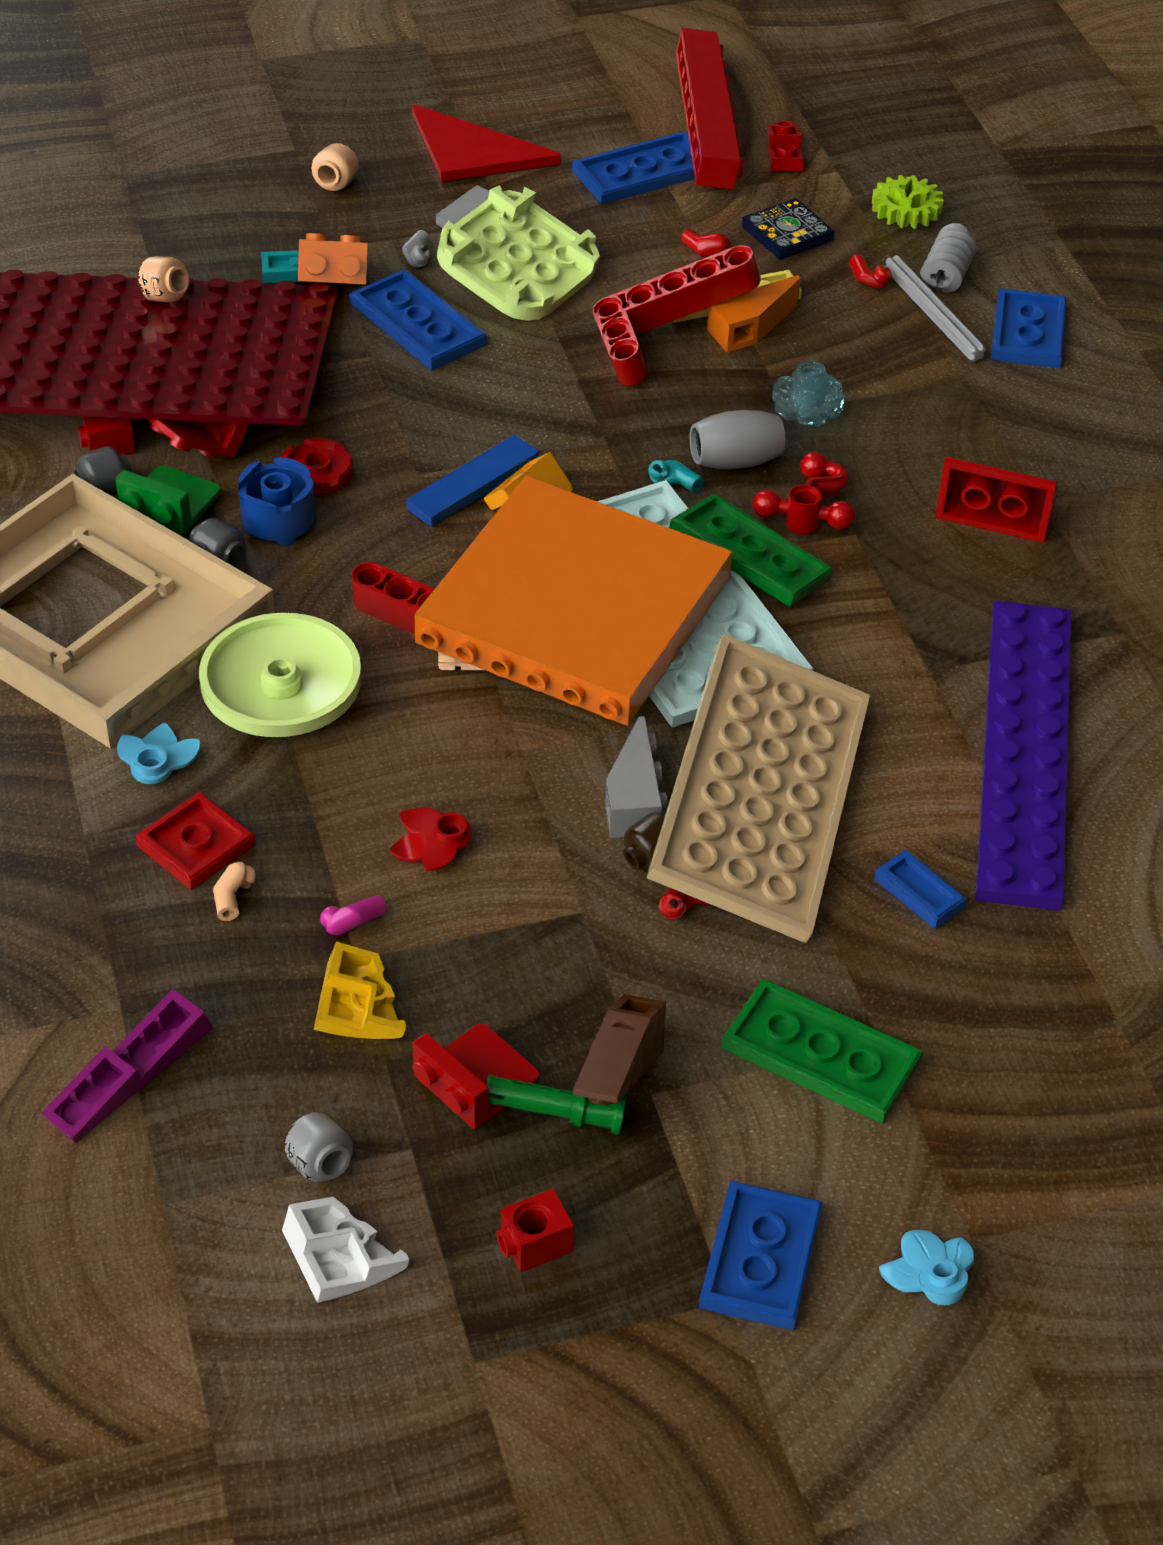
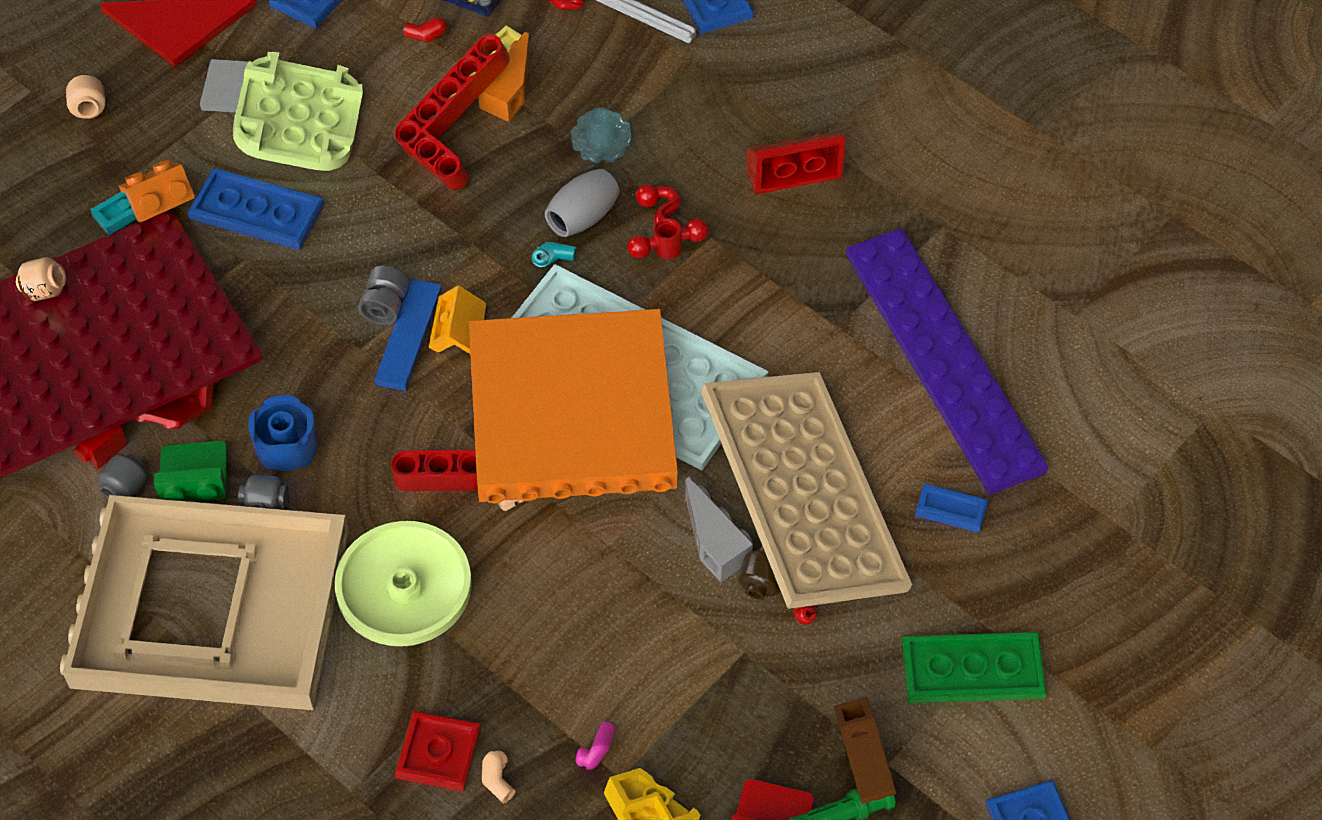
camera: 30 degrees left, 10 degrees up
(157, 754) = (355, 693): medium azure plate -> none
(336, 463) = (277, 368): red tile -> none
(414, 248) = (207, 147): light grey arm -> none
(431, 837) = (601, 658): red plate -> none
(472, 432) = (383, 295): none -> flat silver wheel
(756, 550) = (677, 294): green tile -> none
(931, 1267) = (1141, 785): medium azure plate -> none

